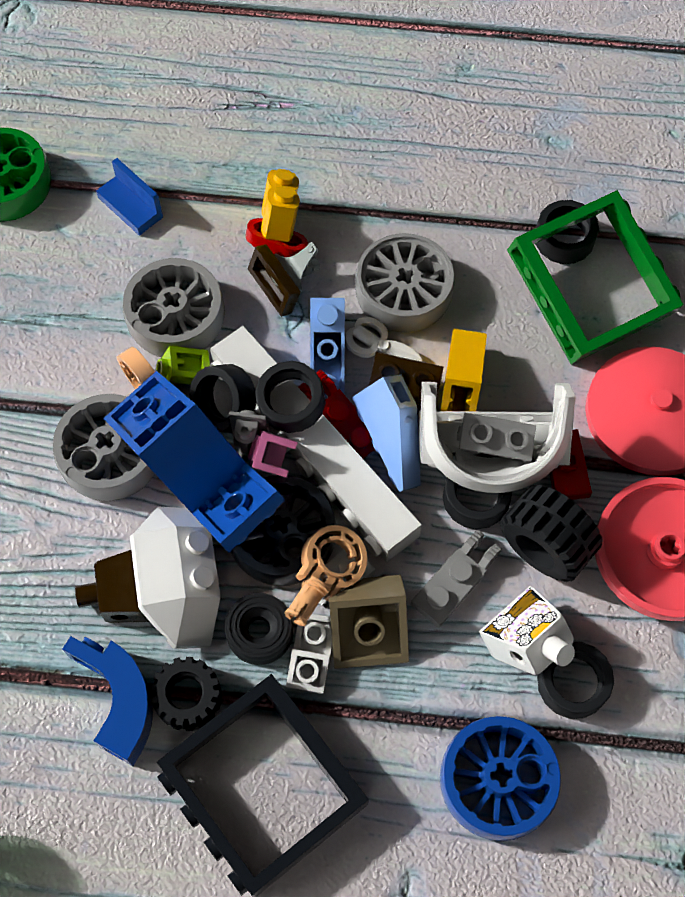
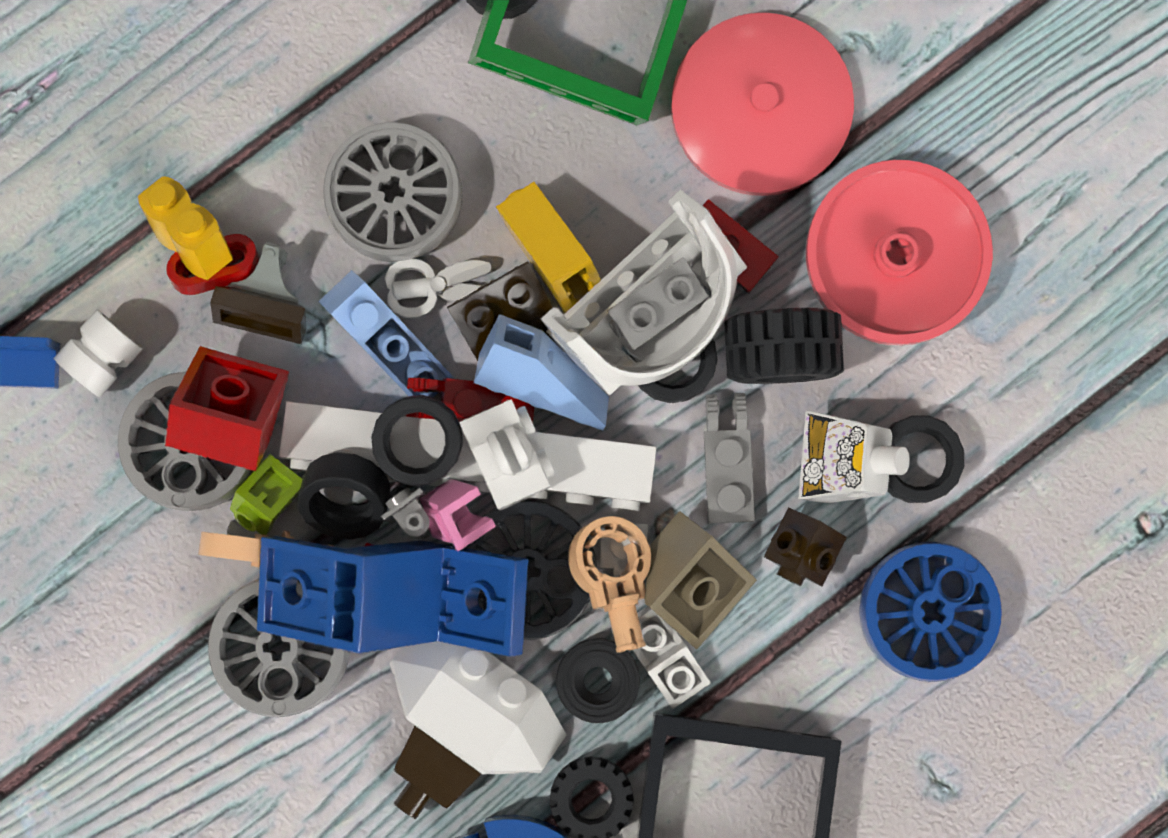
camera: 45 degrees left, 20 degrees up
(174, 228) = (98, 353): none -> white wheel
(206, 296) = (226, 408): none -> red slope
(331, 446) = (506, 454): none -> white brick
(455, 664) = (804, 548): none -> dark brown brick

